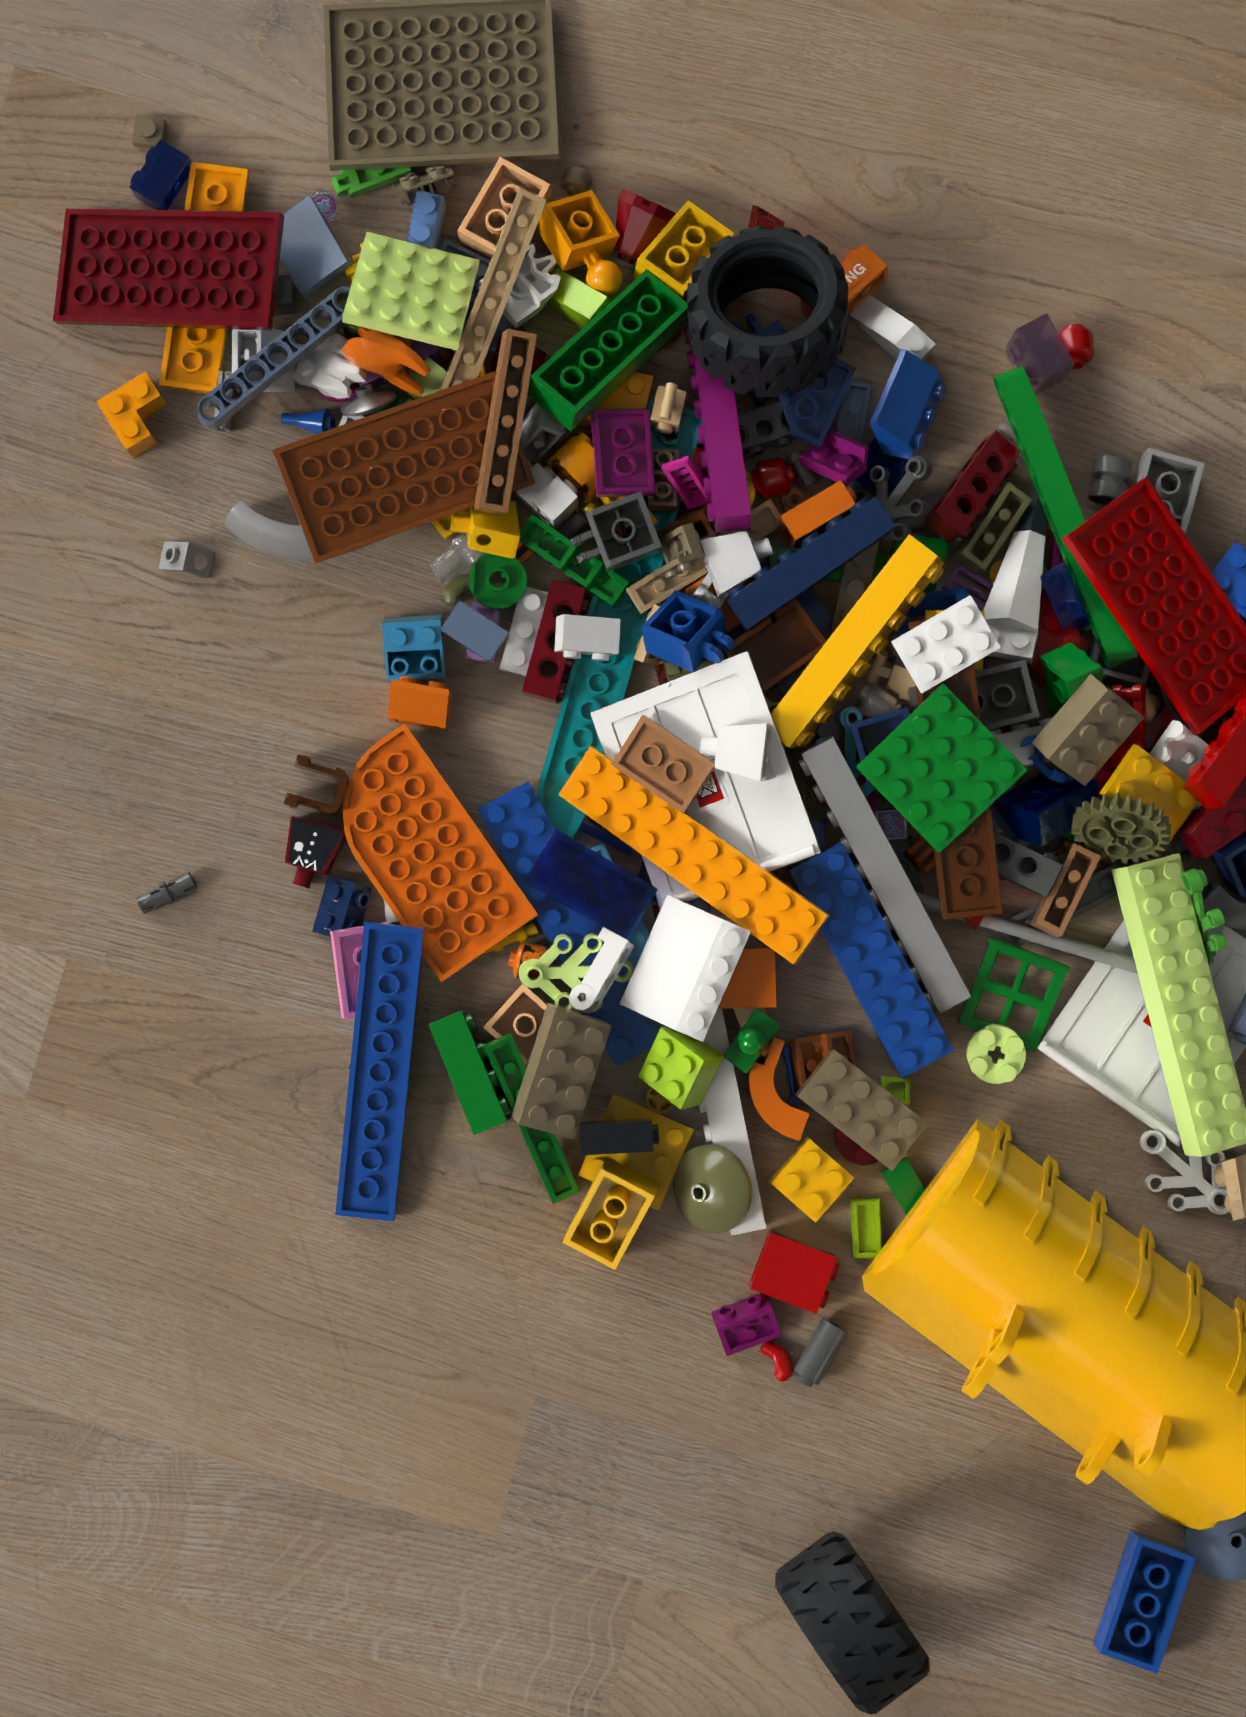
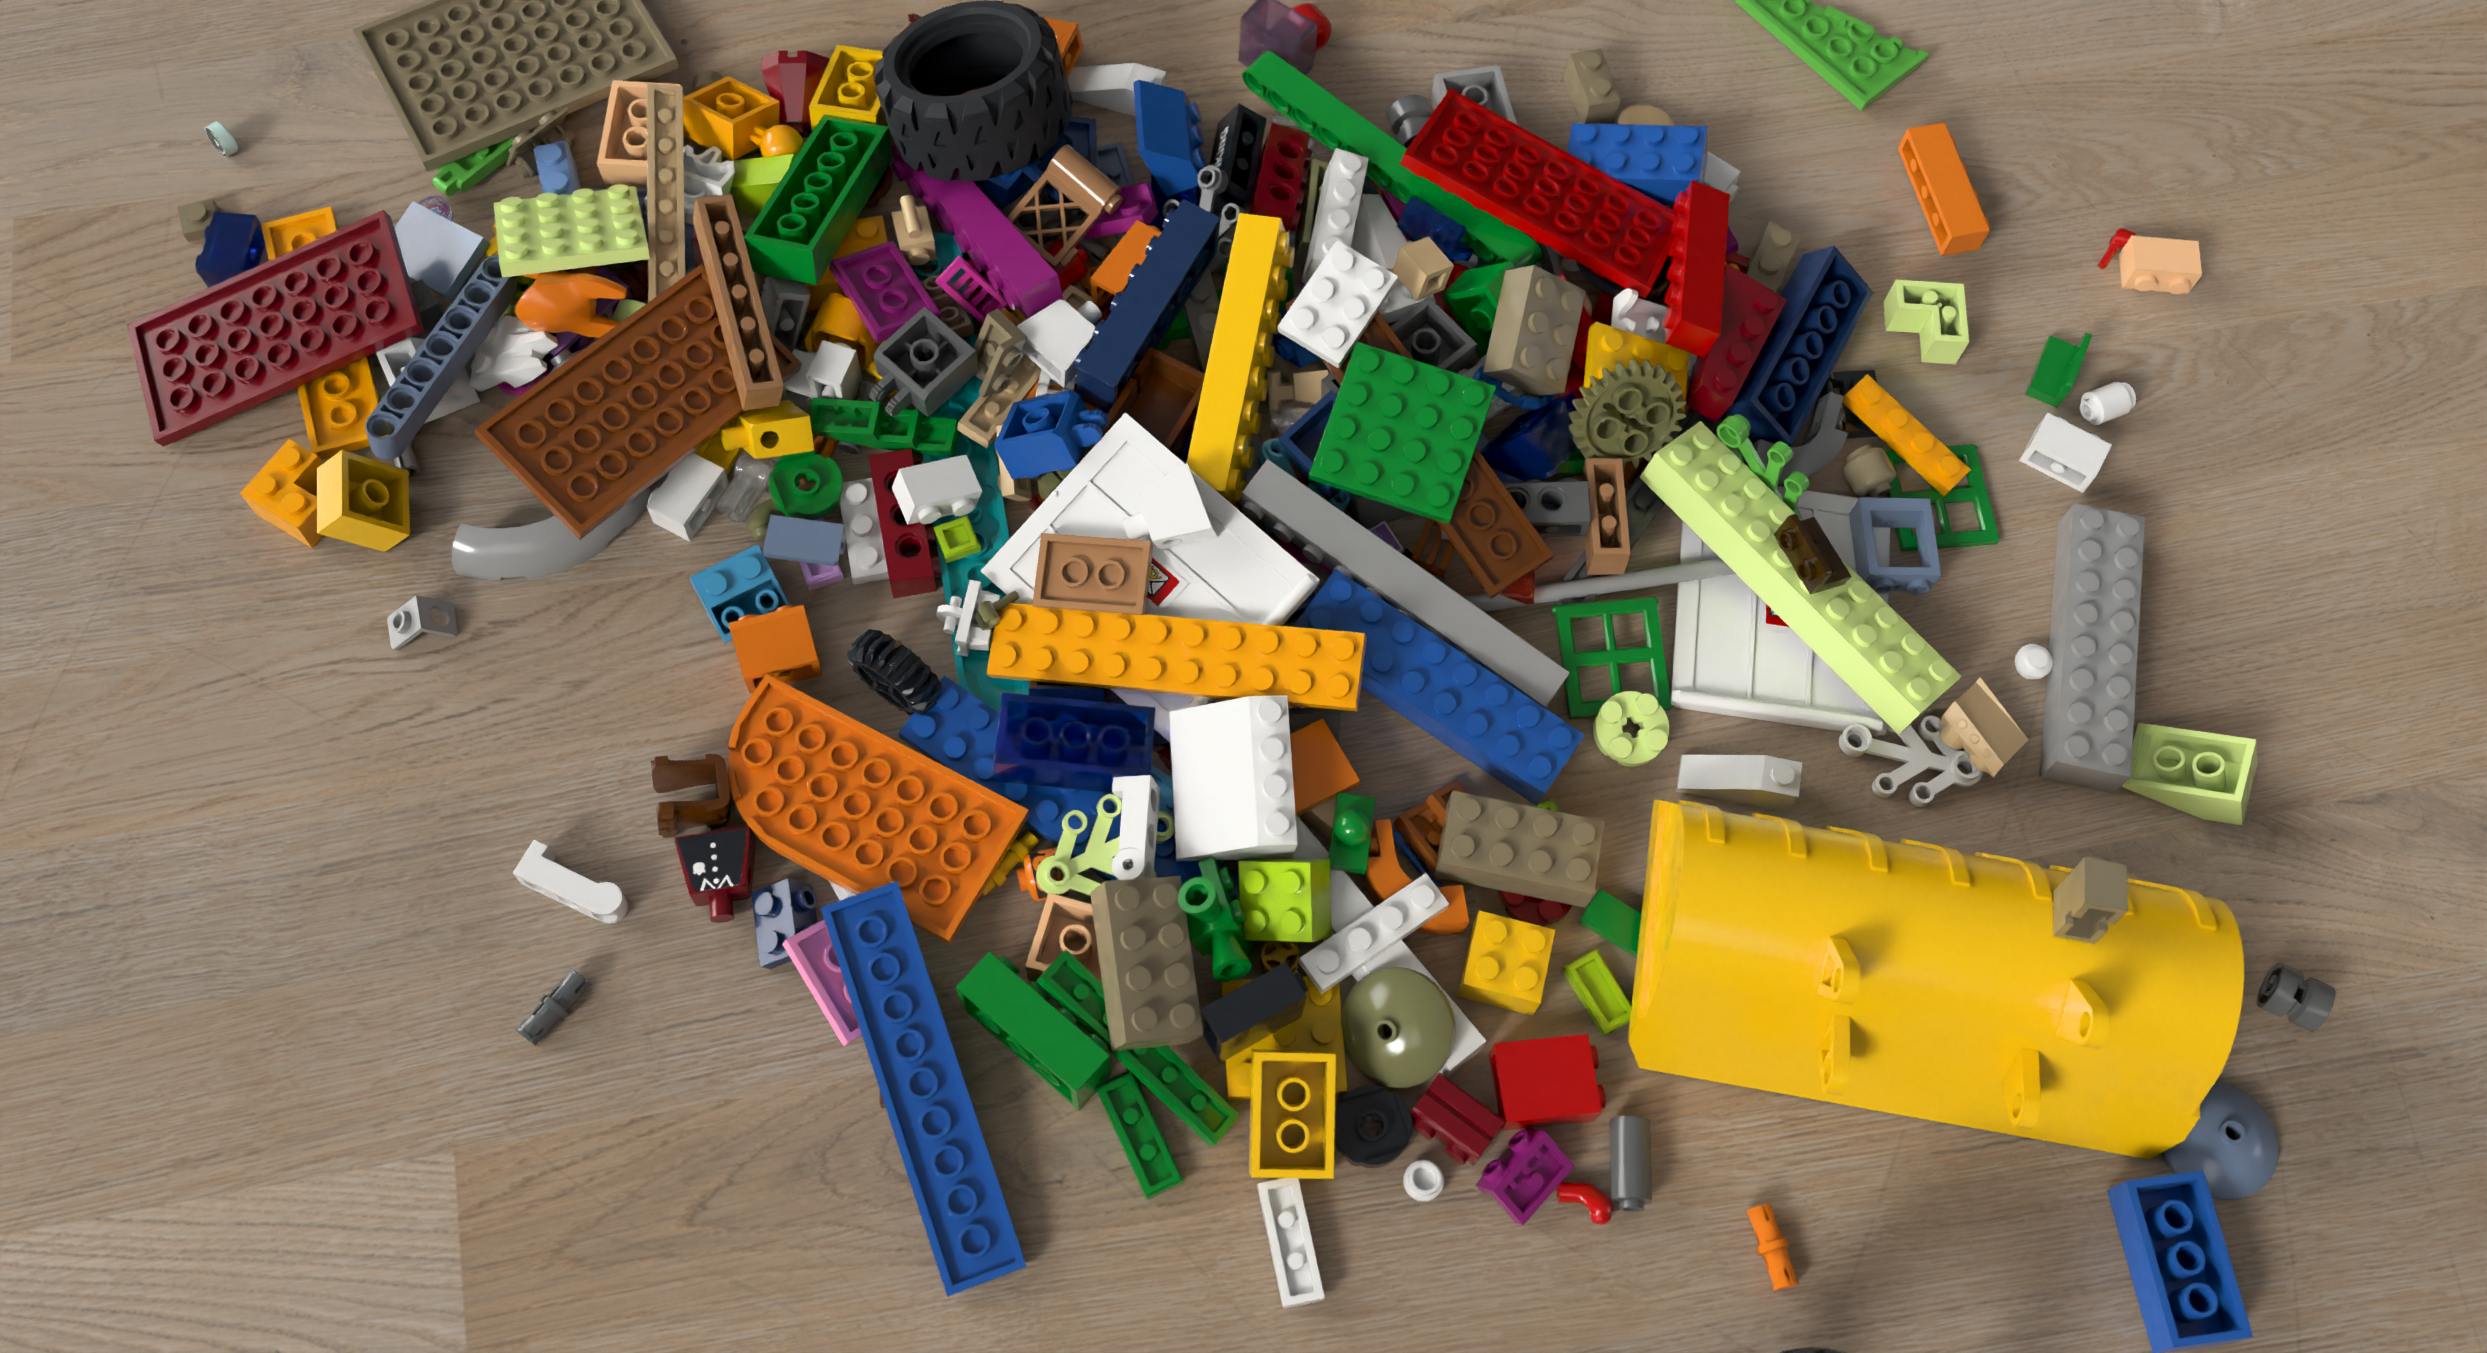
camera: 30 degrees left, 20 degrees down
(179, 448) = (363, 501): none -> yellow brick
(189, 65) = (221, 139): none -> light aqua tile
(224, 832) = (597, 900): none -> white leg
(411, 548) = (687, 496): none -> white brick
(493, 765) = (894, 672): none -> black gear
(507, 1170) = (1139, 1136): none -> green tile
(569, 1292) = (1290, 1242): none -> white plate
(575, 737) = (968, 634): none -> white hips
(576, 754) = (988, 616): none -> olive hand
(586, 676) = (957, 539): none -> lime tile
(625, 1061) = (1216, 921): none -> green brick
(673, 1255) = (1382, 1106): none -> black plate
(677, 1293) = (1423, 1180): none -> white plate
(719, 1266) = (1455, 1120): none -> dark red brick
(729, 1118) = (1373, 933): none -> white plate
(815, 435) = (1086, 190): none -> medium nougat piece
(883, 1451) = (1772, 1247): none -> orange pin
(954, 445) = (1238, 153): none -> black brick
(995, 549) = (1336, 207): none -> white brick
(1032, 633) = (1422, 268): none -> tan brick
(1051, 1129) = (1742, 779): none -> white slope
(1194, 1003) = (1811, 554): none -> dark brown bracket
(1203, 1378) = (2090, 899): none -> dark tan brick

